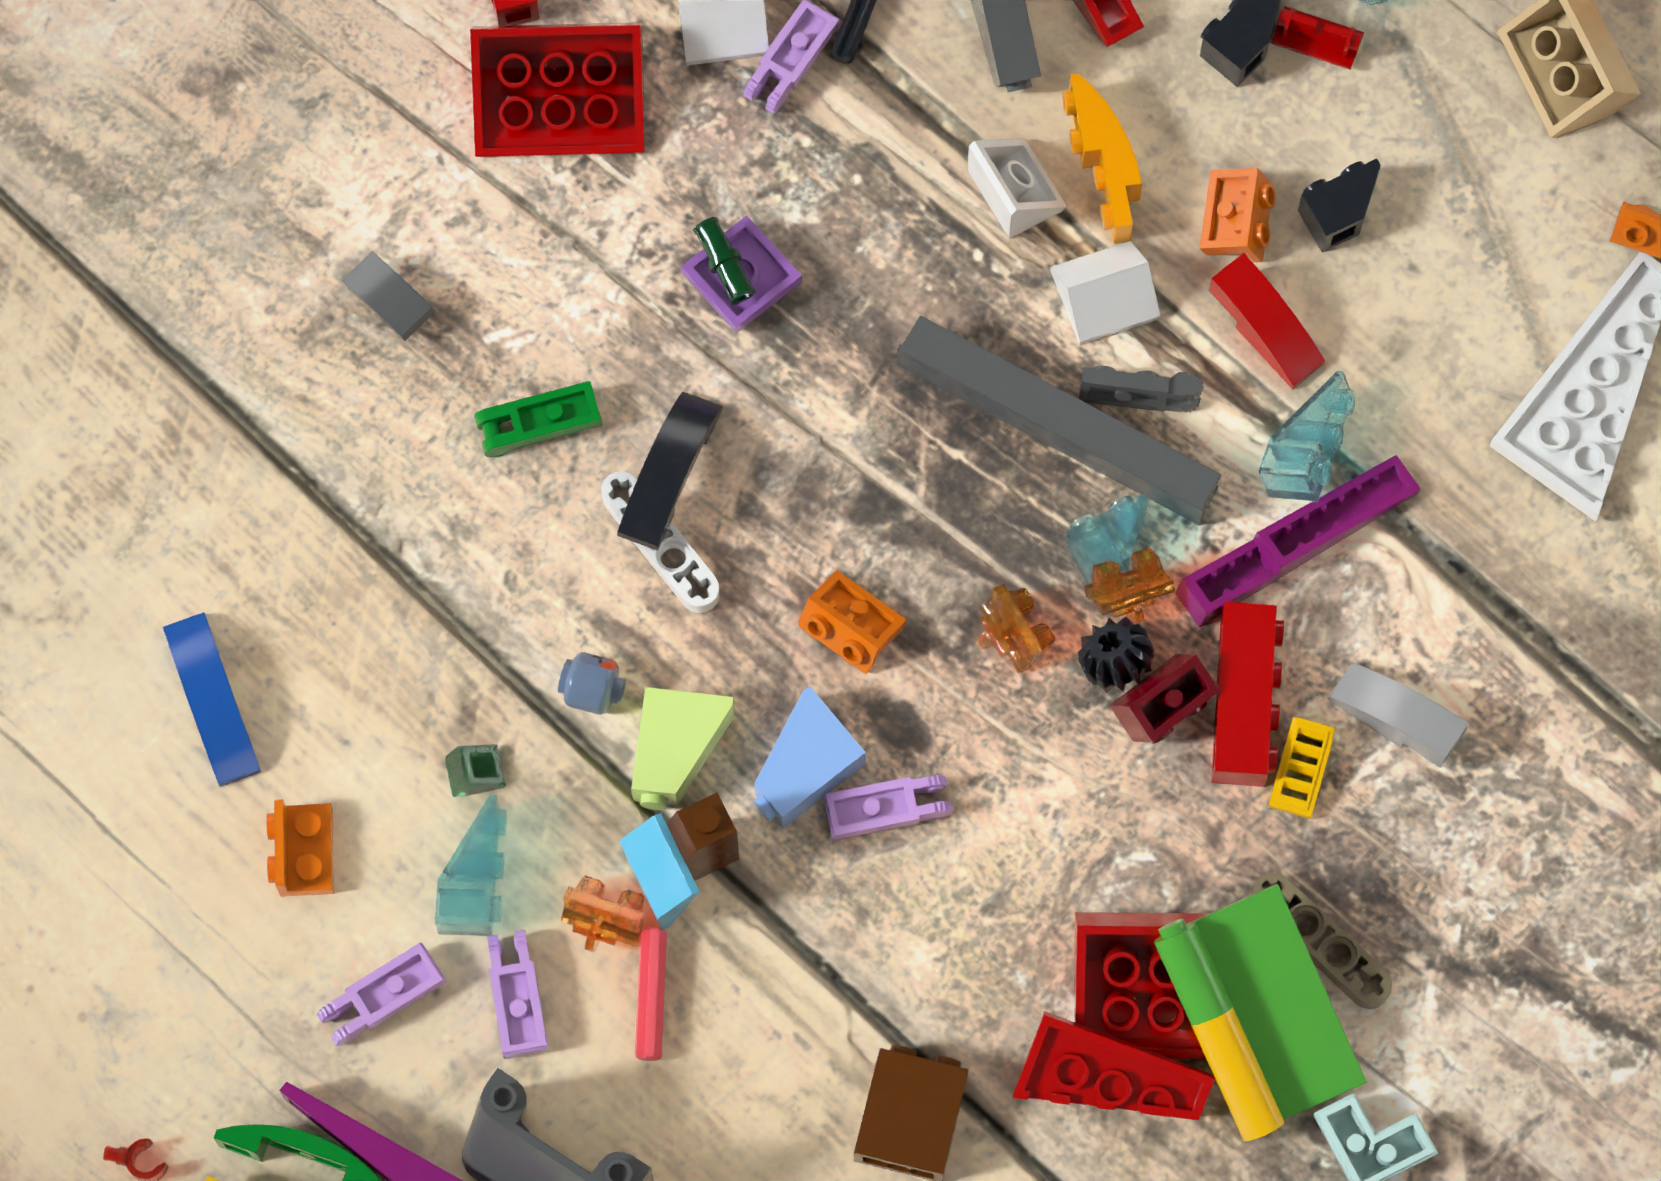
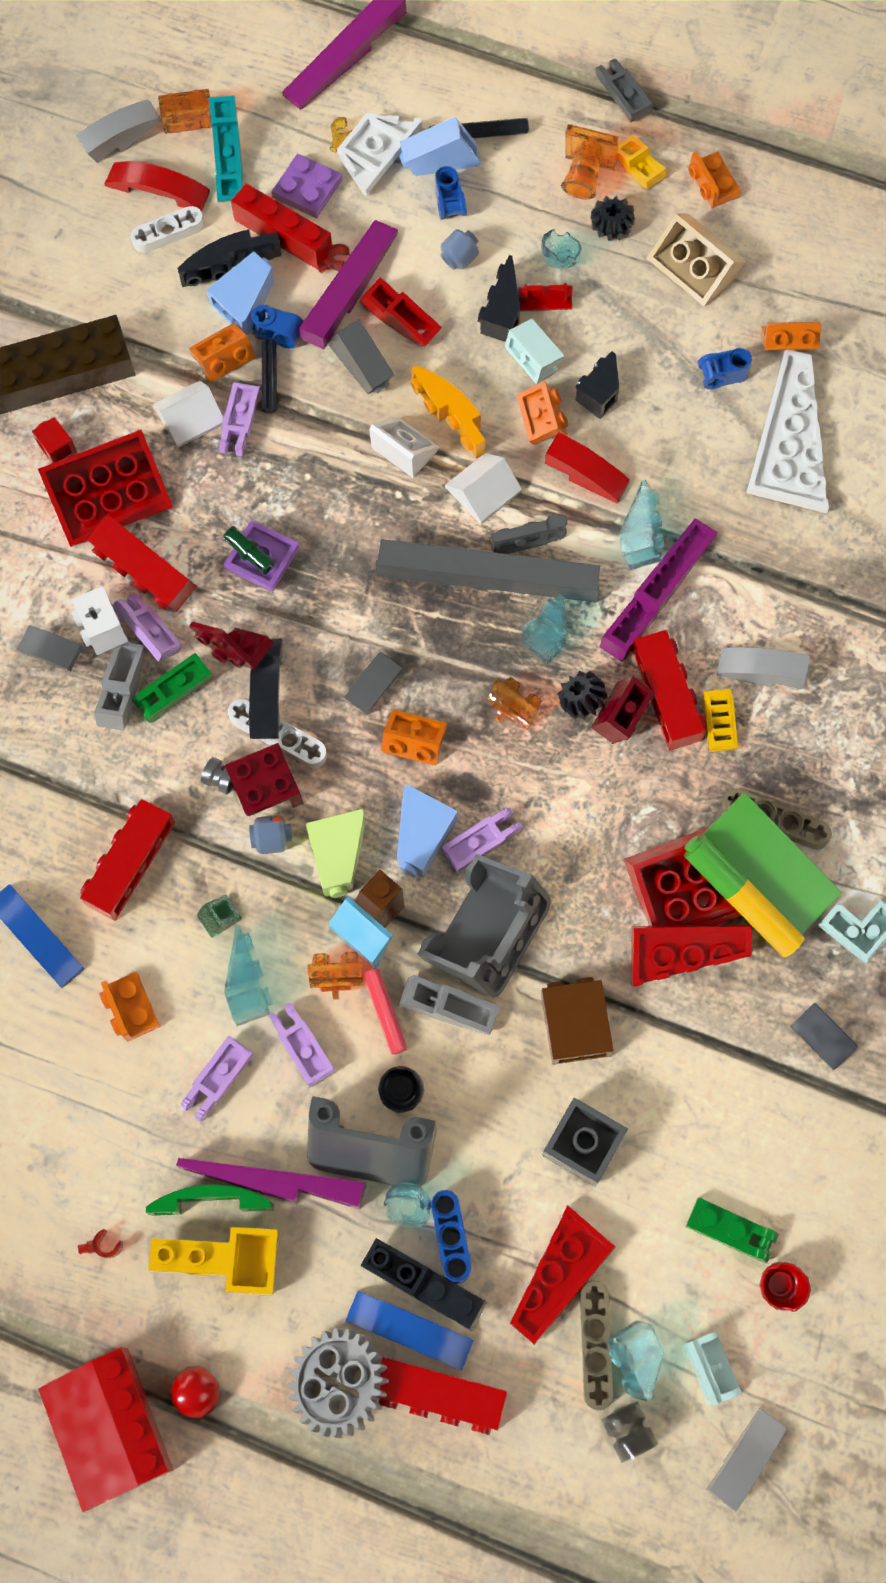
camera: 20 degrees left, 0 degrees up
(379, 641) = (127, 859): none -> red brick
(465, 387) = (119, 686): none -> light grey slope
(472, 283) = (99, 621): none -> white brick
(538, 318) = (148, 627): none -> lavender hinge
(555, 572) = (217, 775): none -> flat silver wheel
(565, 221) = (141, 563): none -> red brick
(612, 603) = (263, 780): none -> dark red bracket
(628, 1110) = (401, 1089): none -> black hair
(653, 398) = (238, 647): none -> dark red bracket
(743, 1021) = (449, 1005): none -> light grey slope
(825, 521) = (373, 682): none -> dark grey slope
(845, 935) = (490, 926): none -> dark grey windscreen
(1130, 590) = (575, 654): clear orange hips -> none
(1265, 113) = (533, 350): none -> light aqua hinge
(1535, 246) = (723, 369): none -> blue piece

